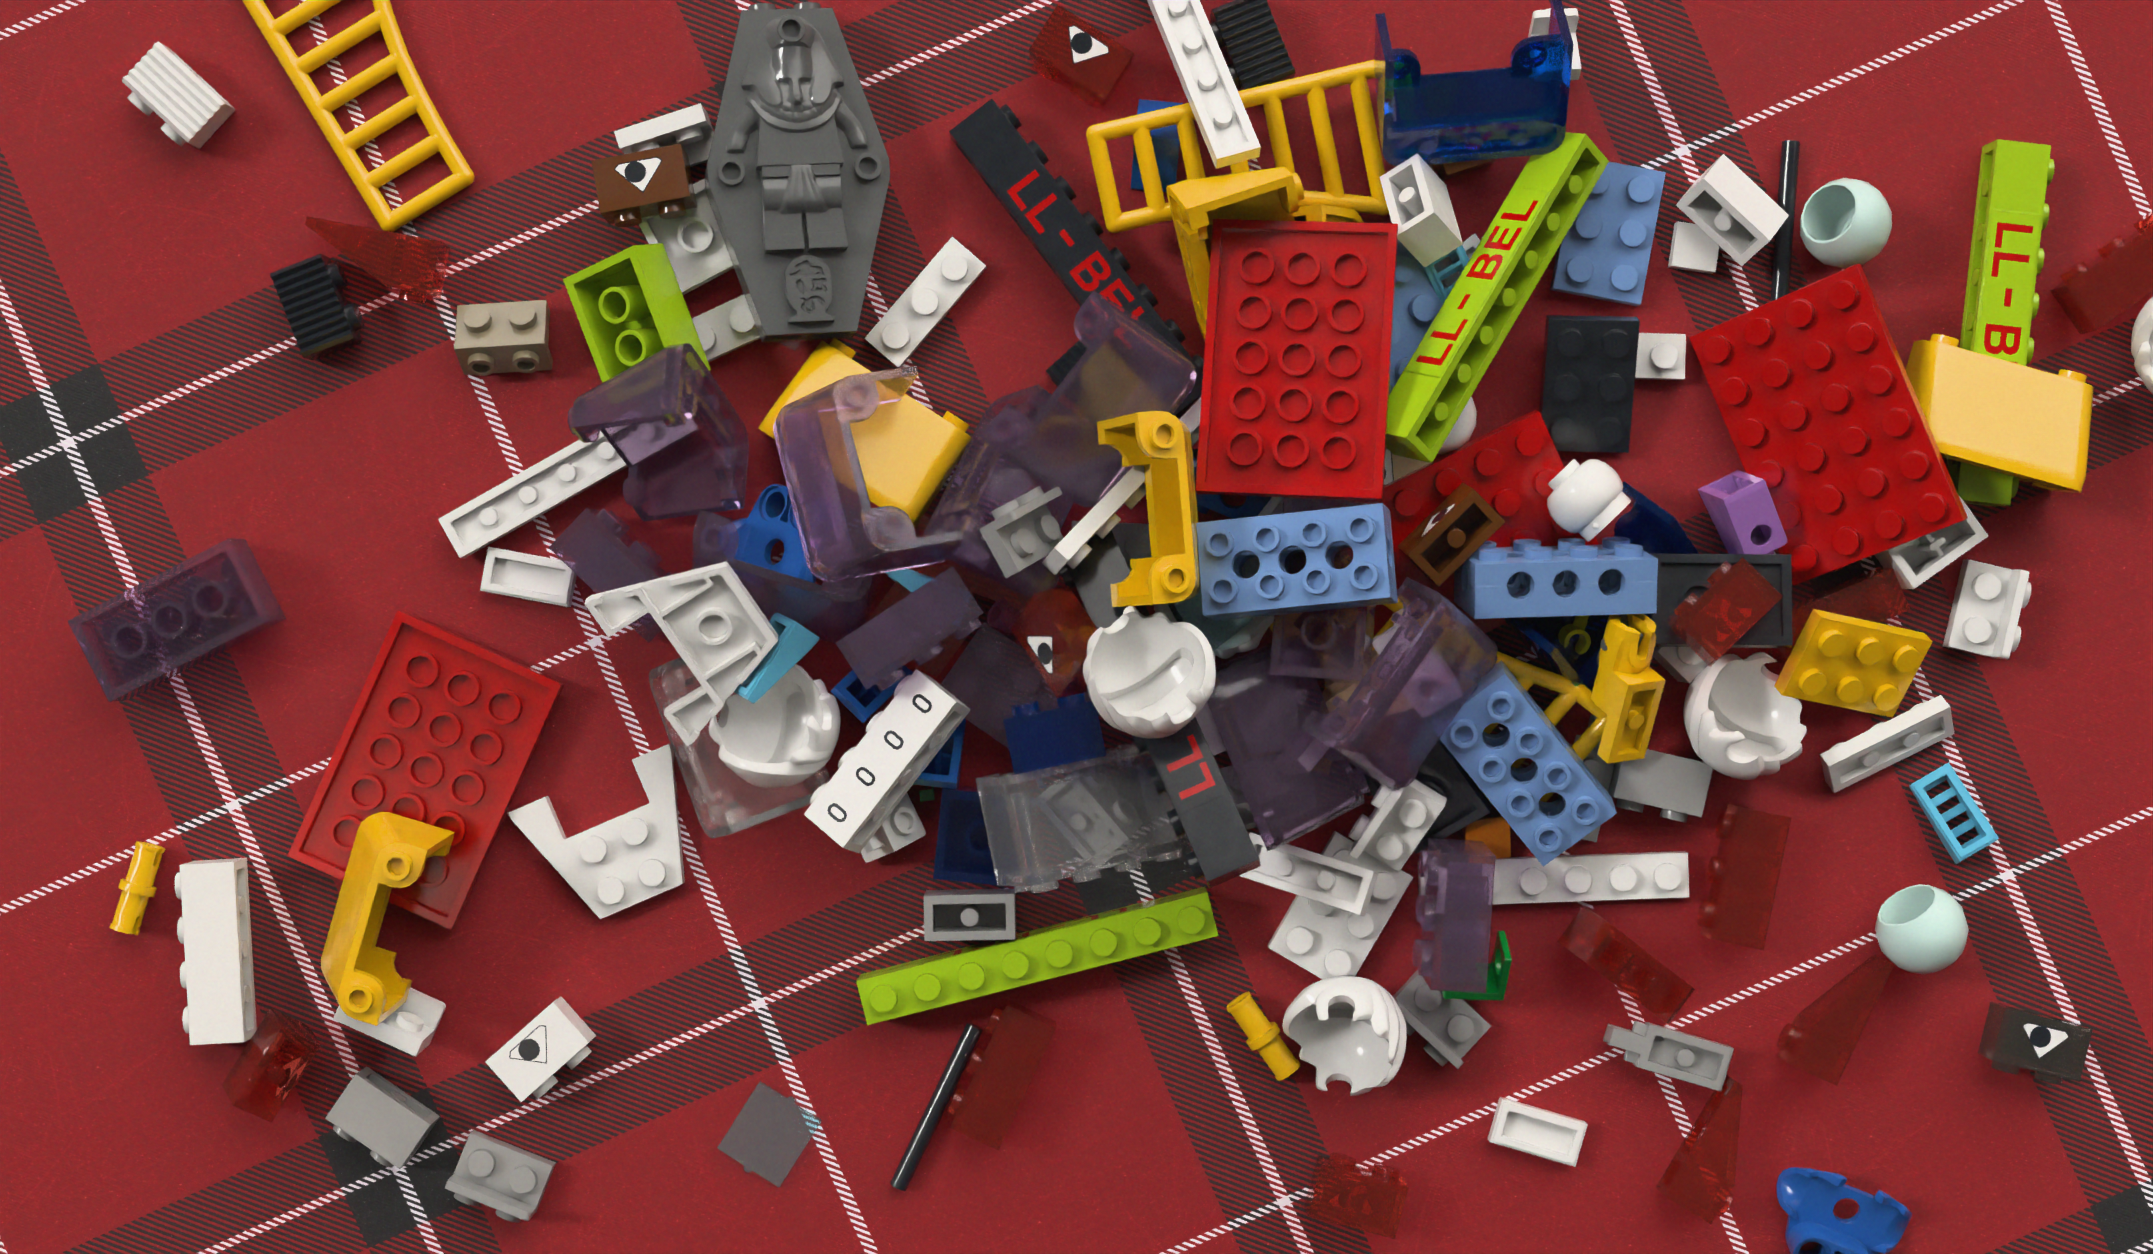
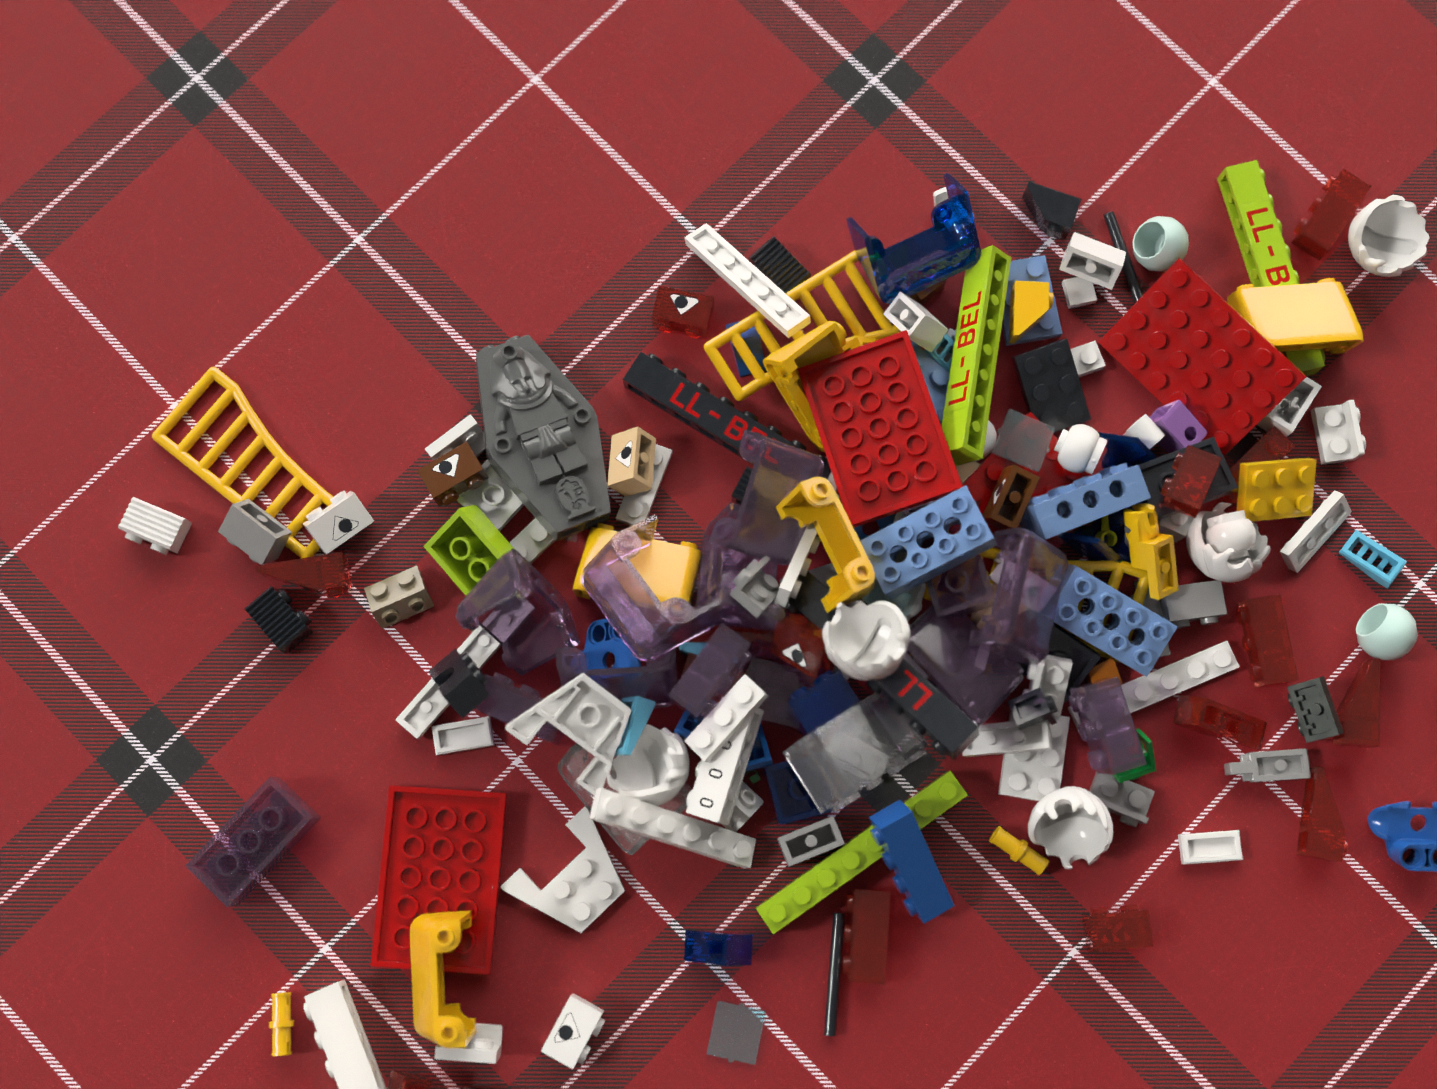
camera: 20 degrees left, 10 degrees down
(322, 161) = (254, 532): none -> light grey brick
(449, 192) = (337, 521): none -> white brick
(546, 507) = (460, 682): none -> black arch
(777, 827) = (672, 828): none -> white plate
(786, 1012) = (718, 947): none -> clear blue slope
(909, 704) = (726, 718): none -> white plate
(916, 264) = (631, 461): none -> tan brick
(1100, 999) = (911, 861): none -> blue brick
(1359, 851) = (1032, 709): none -> black bracket
(1510, 451) = (1023, 440): none -> clear light blue piece
(1602, 248) = (1027, 307): none -> yellow slope
(1692, 507) = (1146, 431): none -> white piece
(1705, 104) = (1051, 209): none -> black slope
(1754, 706) = (1232, 532): none -> white piece
(1767, 1000) = (1314, 709): none -> pearl dark grey bracket

